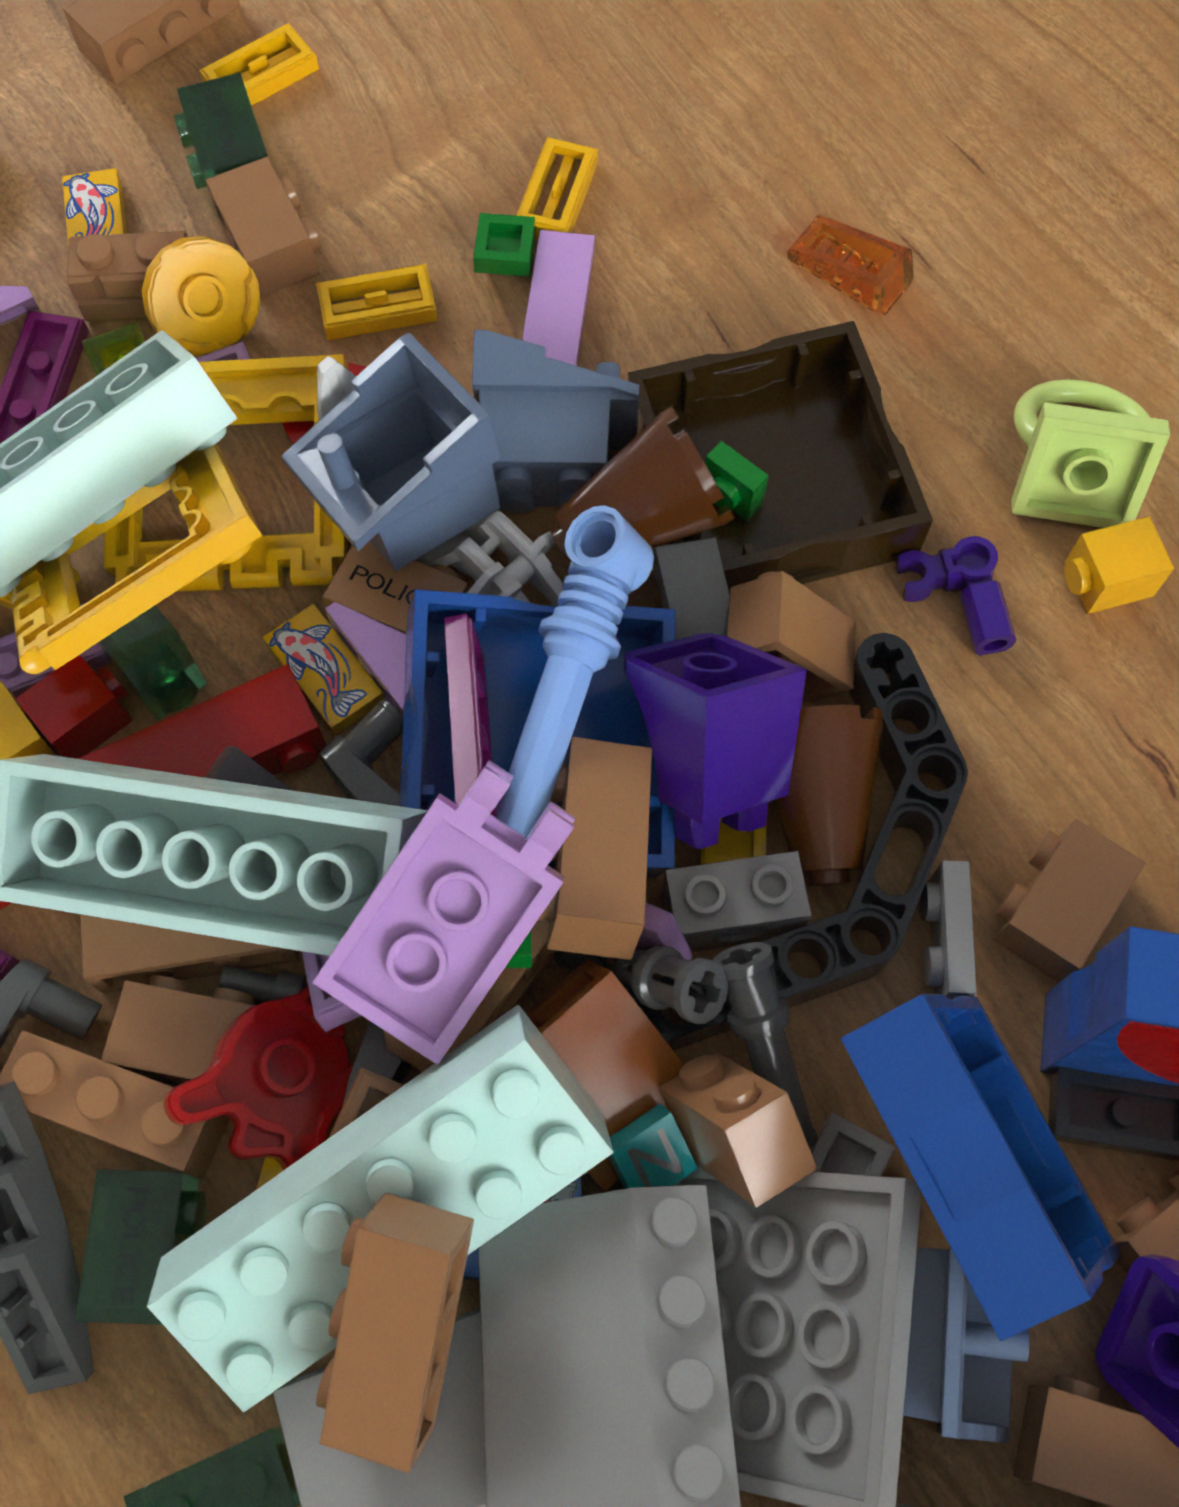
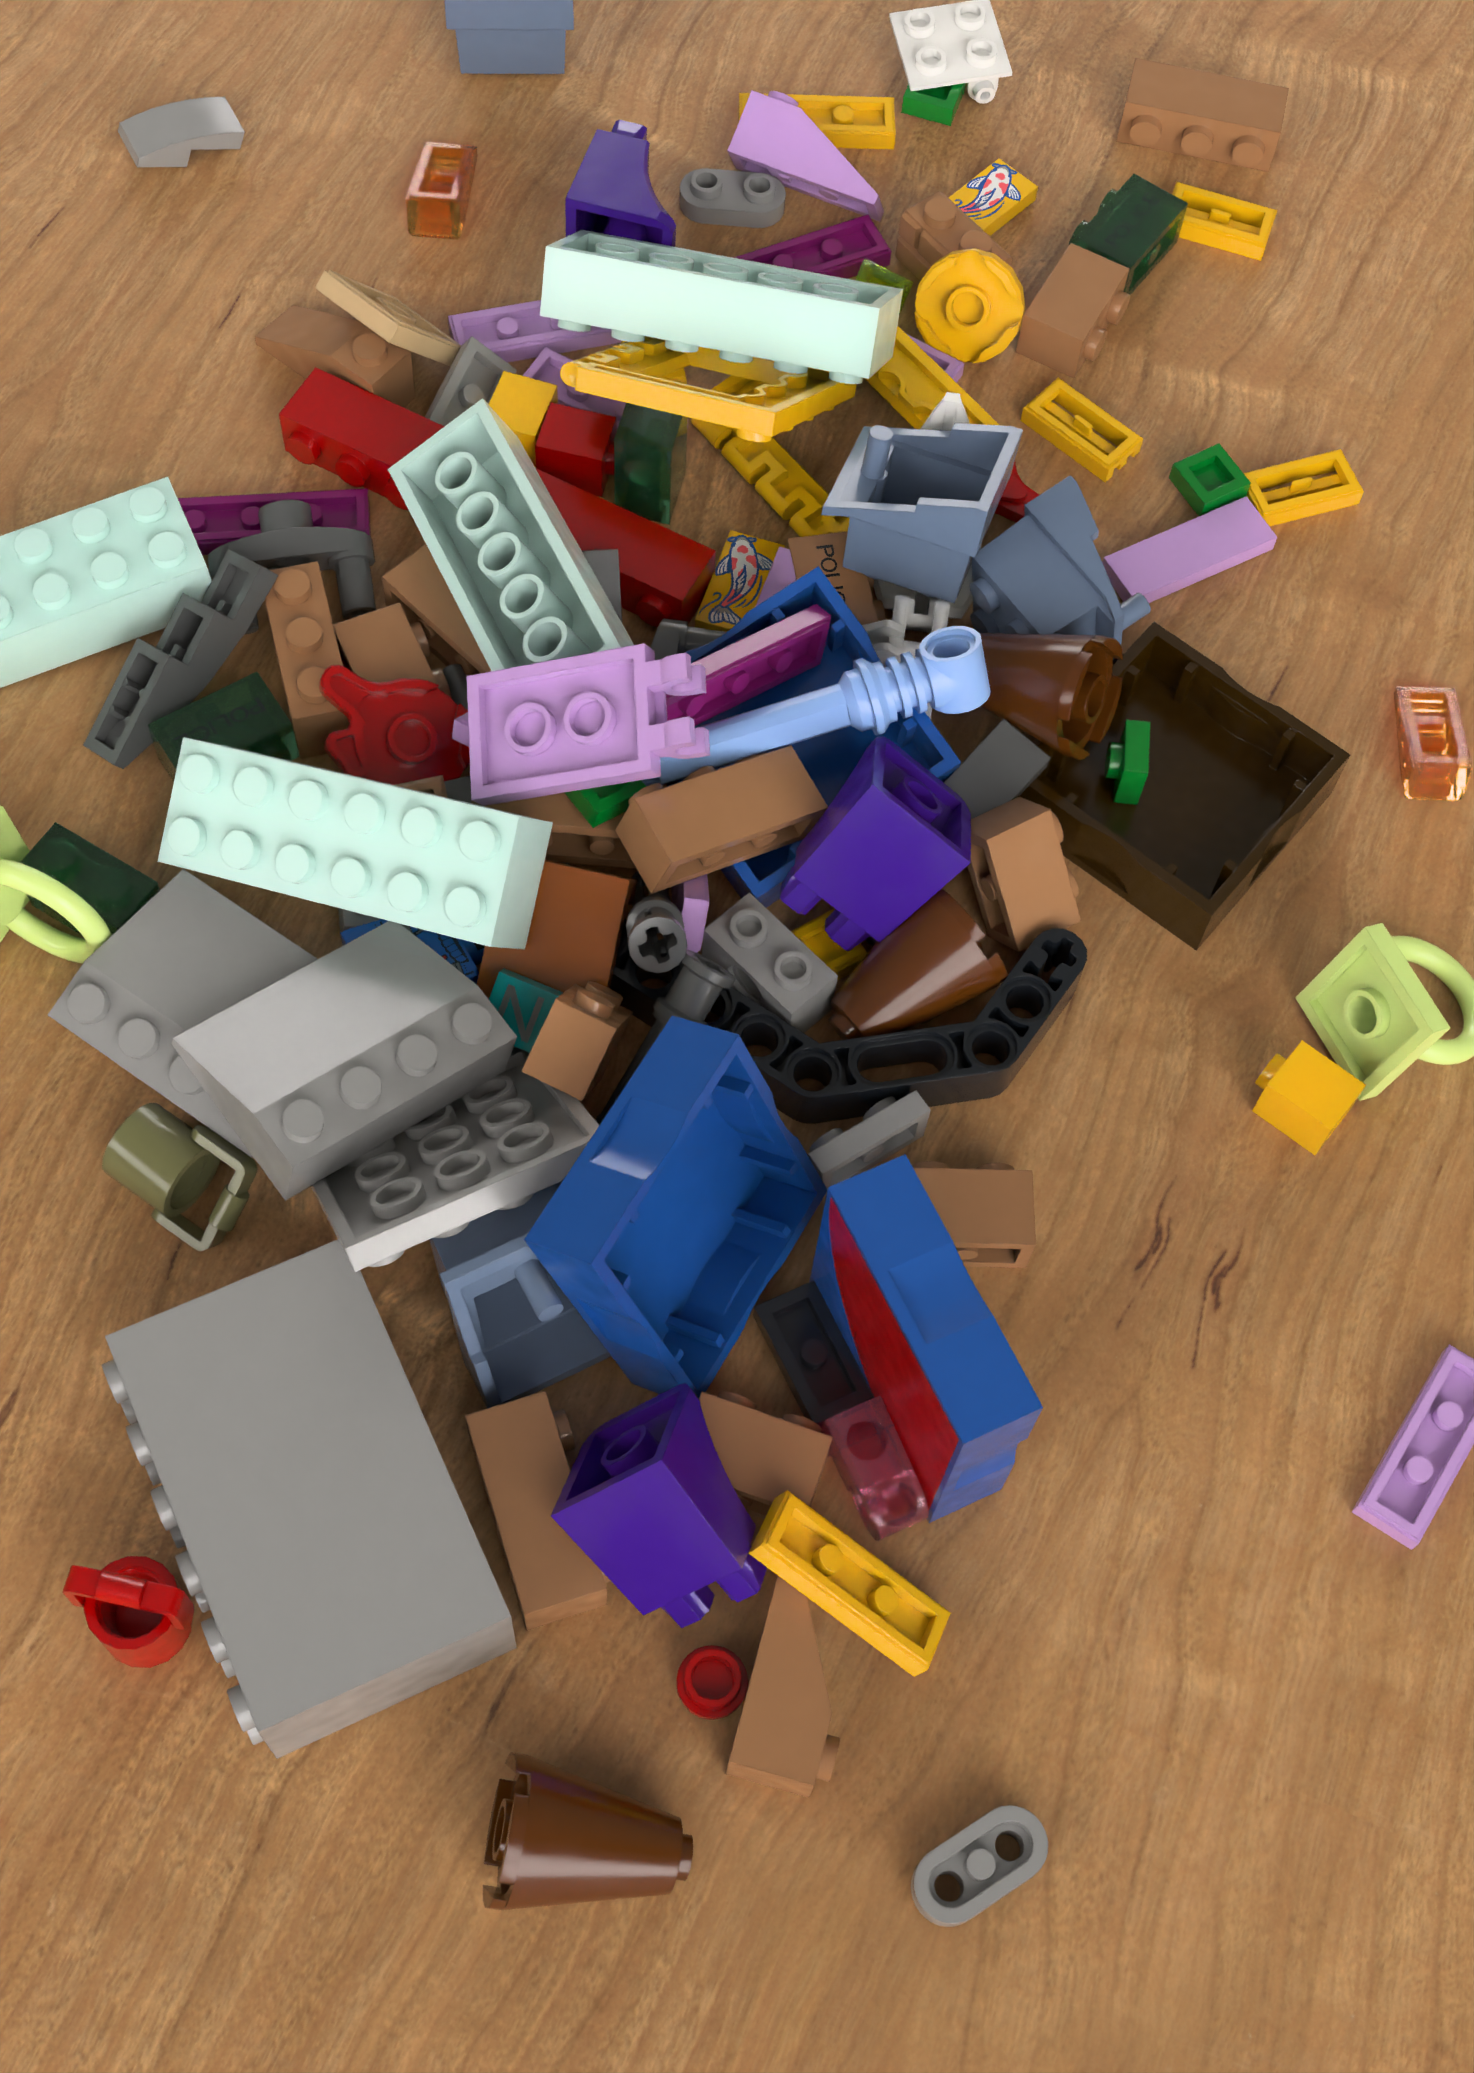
camera: 50 degrees right, 5 degrees down
(393, 1330) = (270, 884): medium nougat brick -> none
(968, 569) = (1207, 993): dark purple bar -> none

